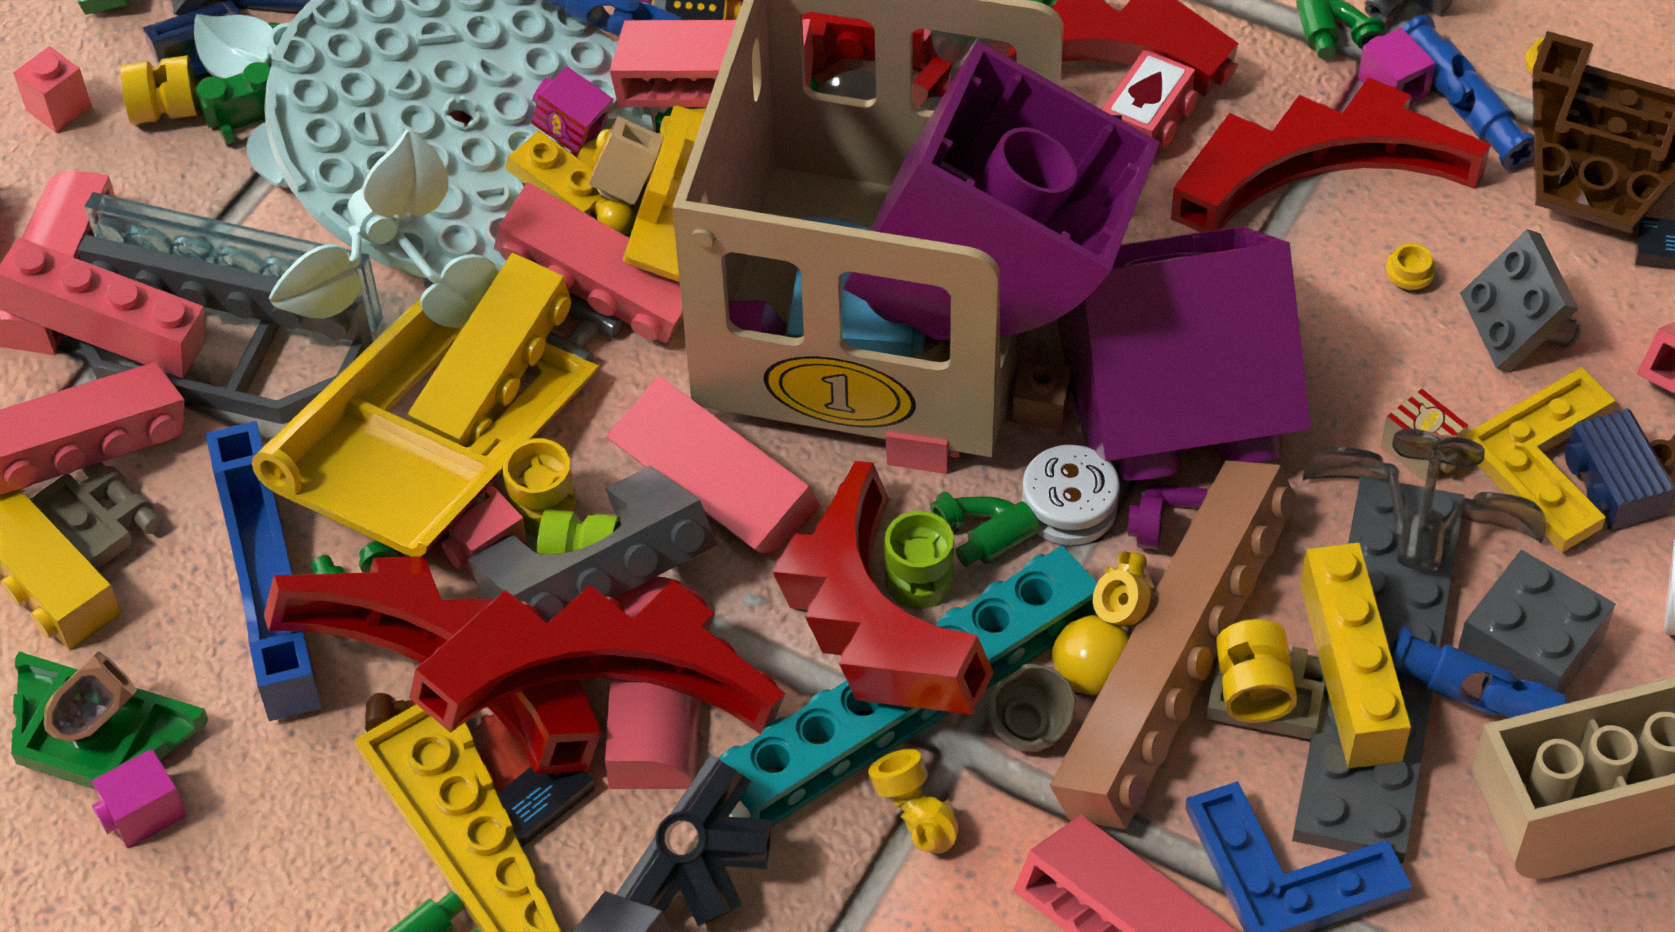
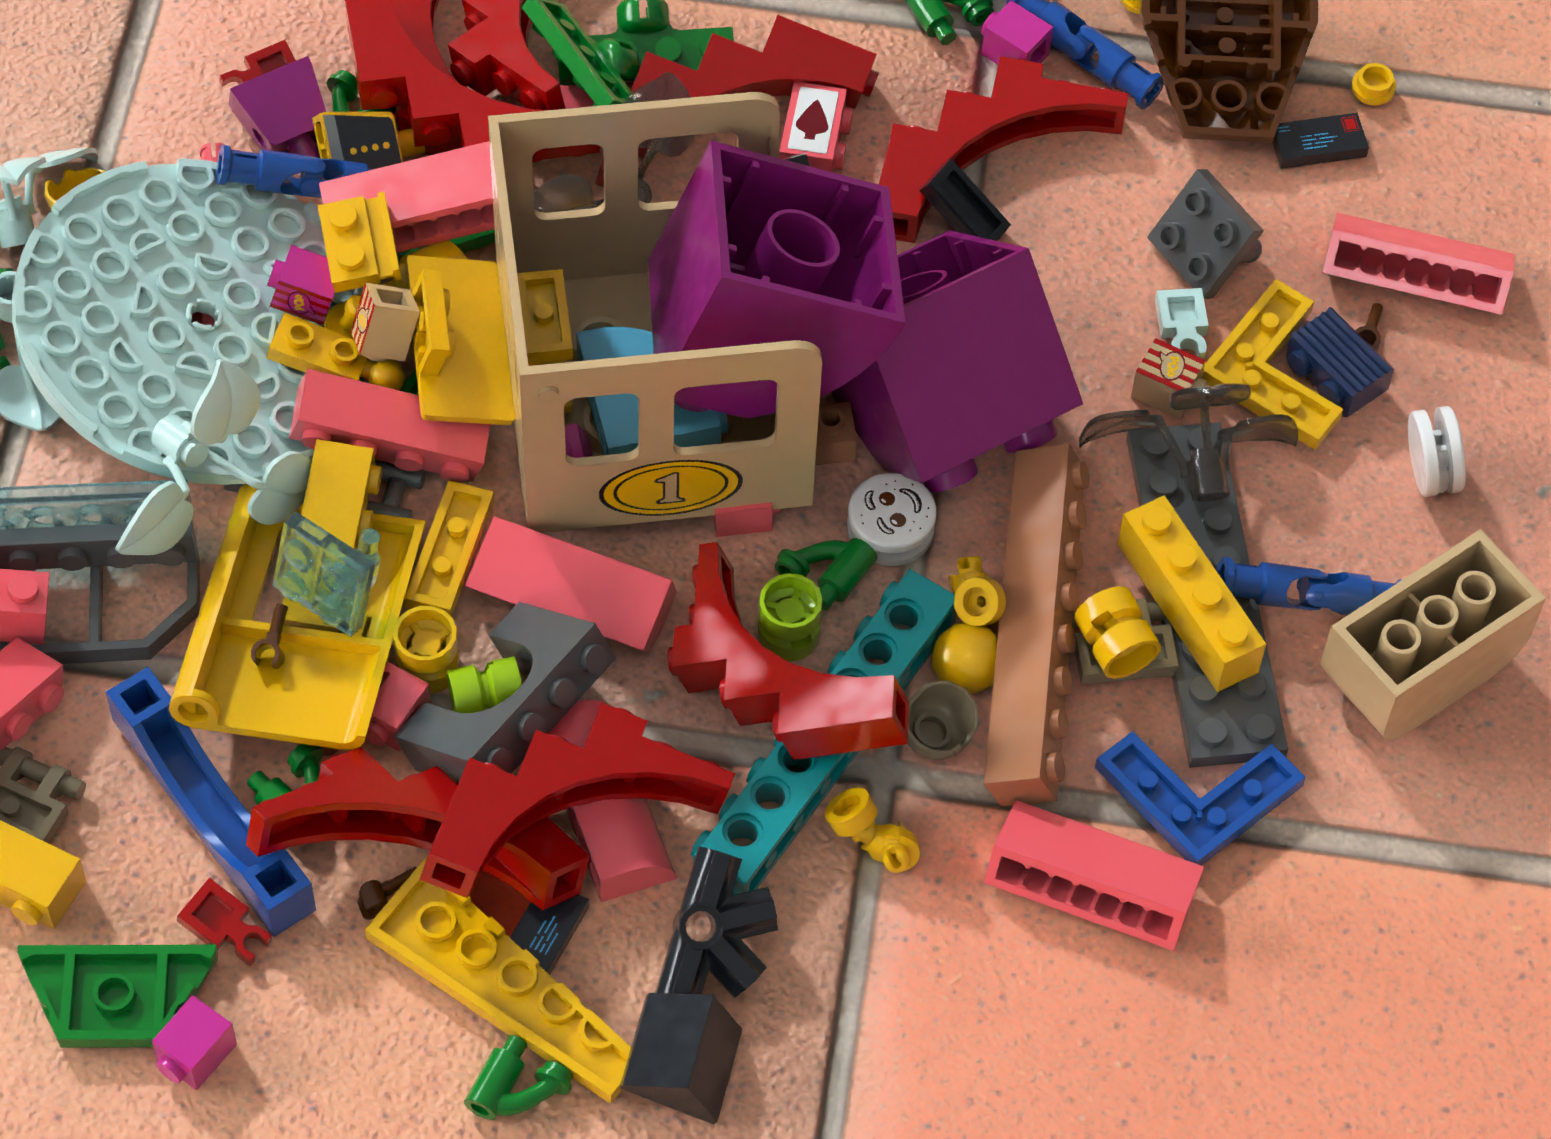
camera: 25 degrees left, 5 degrees up
(87, 699) = (114, 970): rock -> none
(222, 685) = (218, 917): none -> red plate
(372, 432) = (272, 639): none -> reddish brown hand
(458, 378) = (327, 572): none -> clear light blue plate
(608, 397) = (450, 547): none -> yellow plate
(632, 79) = (359, 242): none -> yellow plate
(765, 188) = (546, 319): none -> yellow panel
(1146, 519) = (967, 522): magenta plate -> none
(1272, 206) = (963, 203): none -> black tile
(1411, 266) = (1097, 224): yellow plate -> none
(1465, 381) = (1183, 318): none -> light aqua plate
(1537, 623) = (1323, 520): dark grey brick -> none

